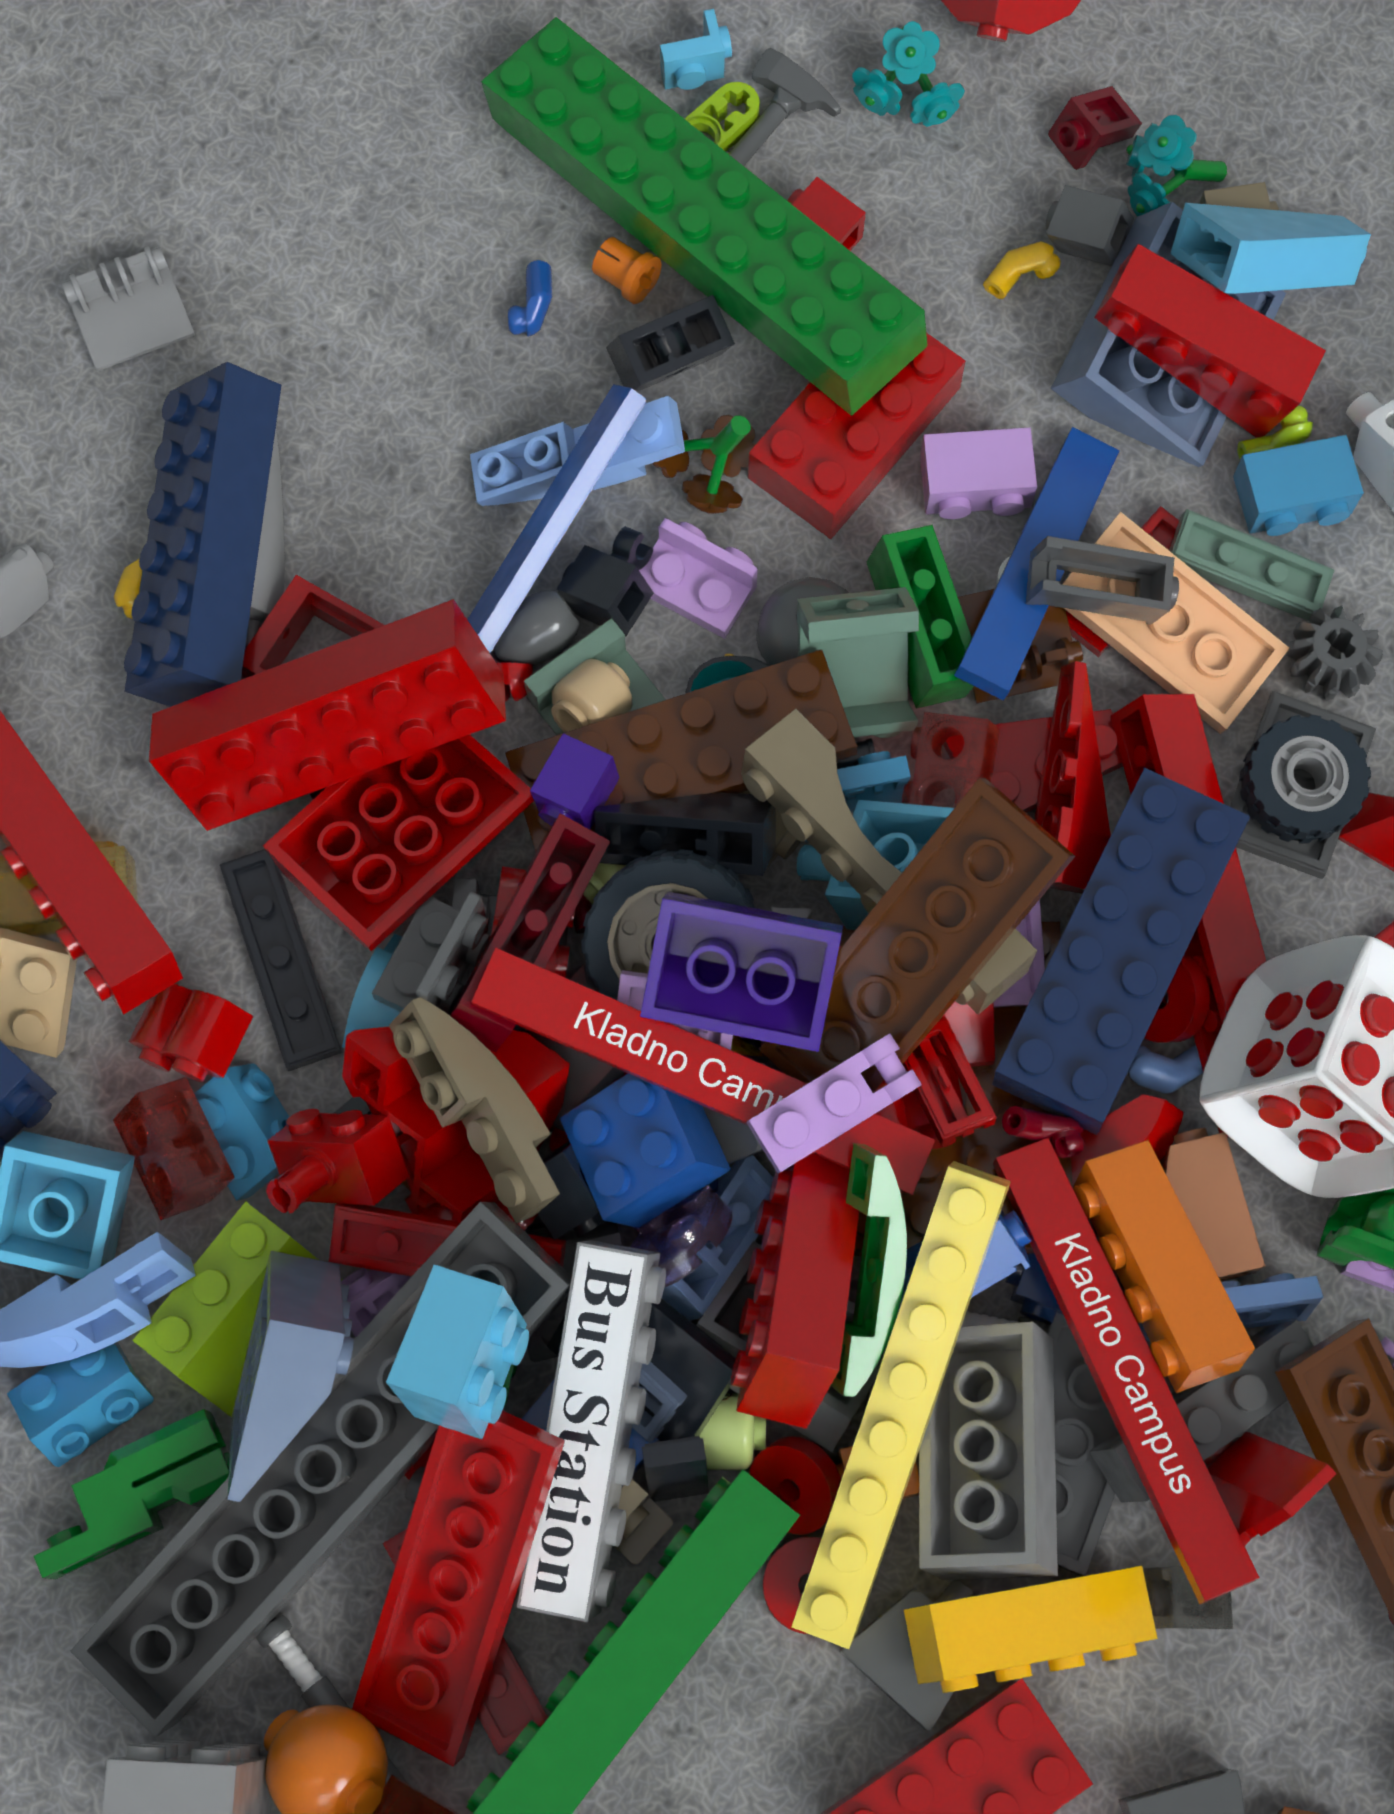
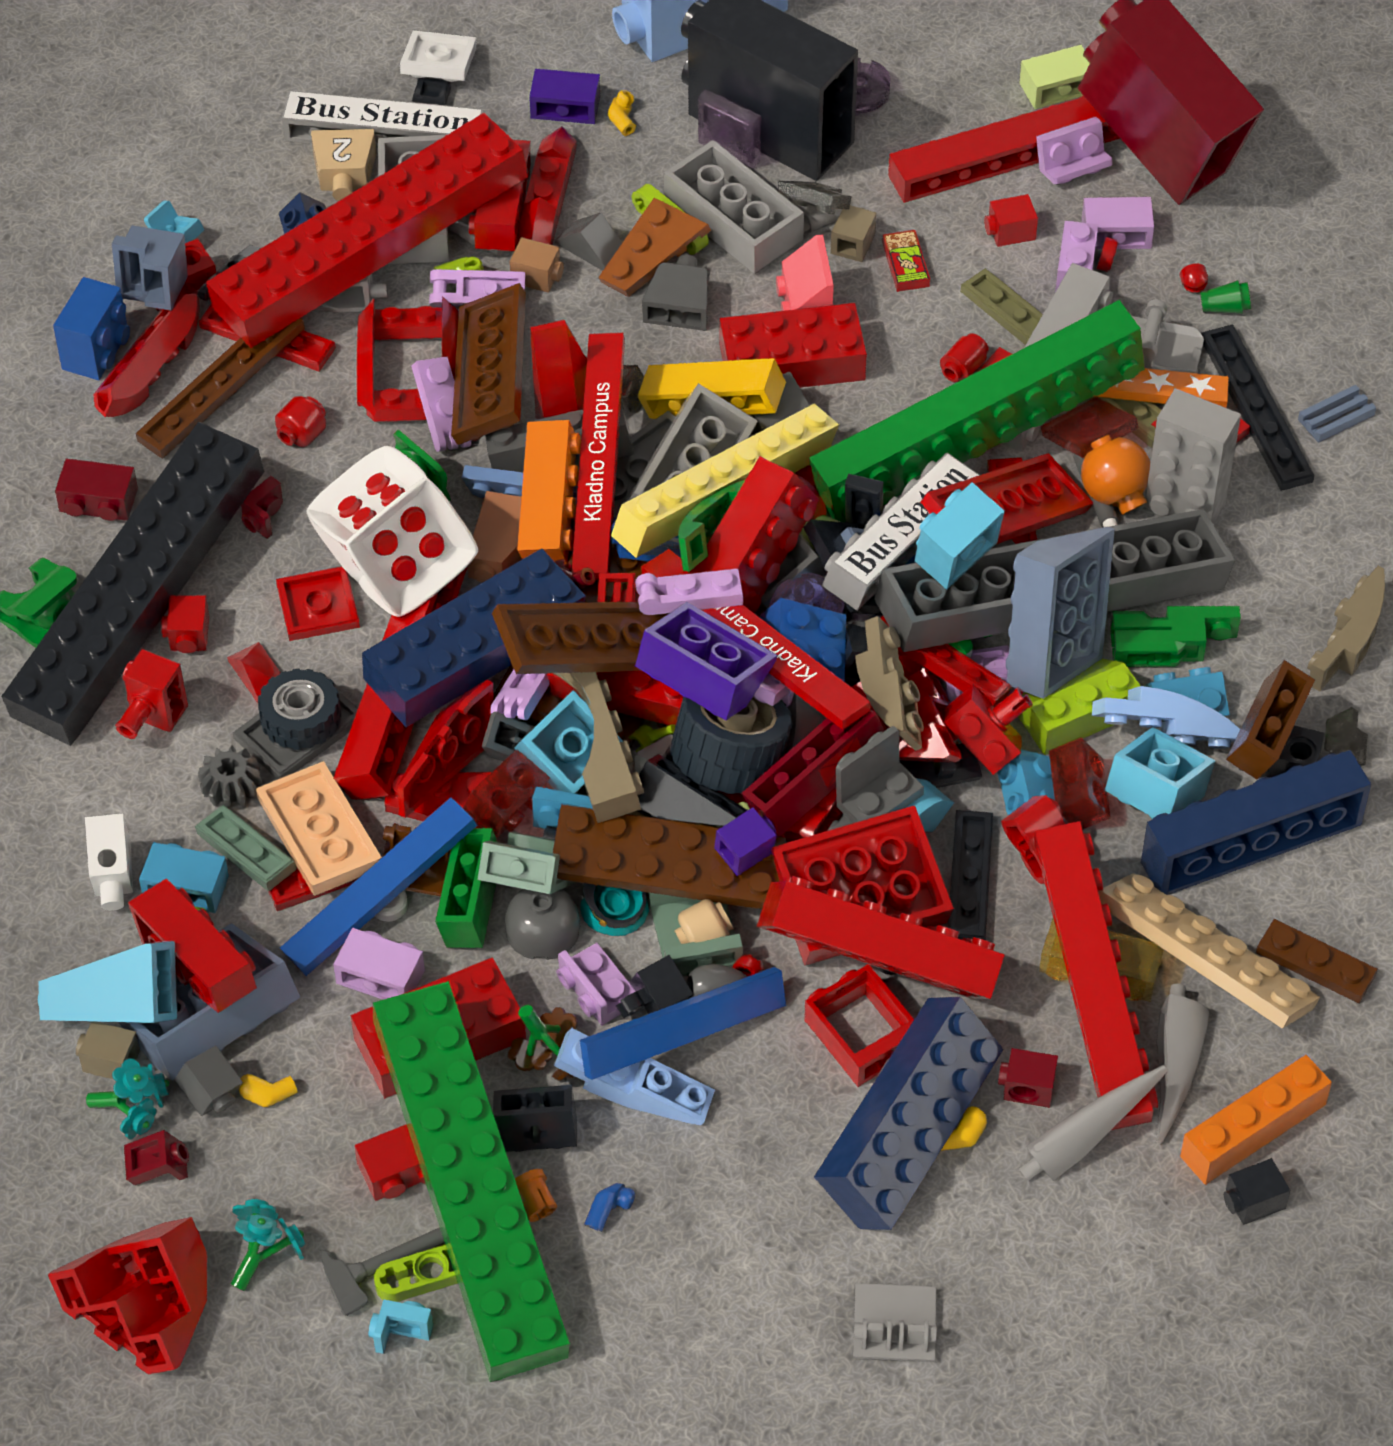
camera: 155 degrees left, 20 degrees down
(81, 679) = (1028, 1077): none -> dark red brick
(1153, 574) = (356, 836): dark grey window -> none

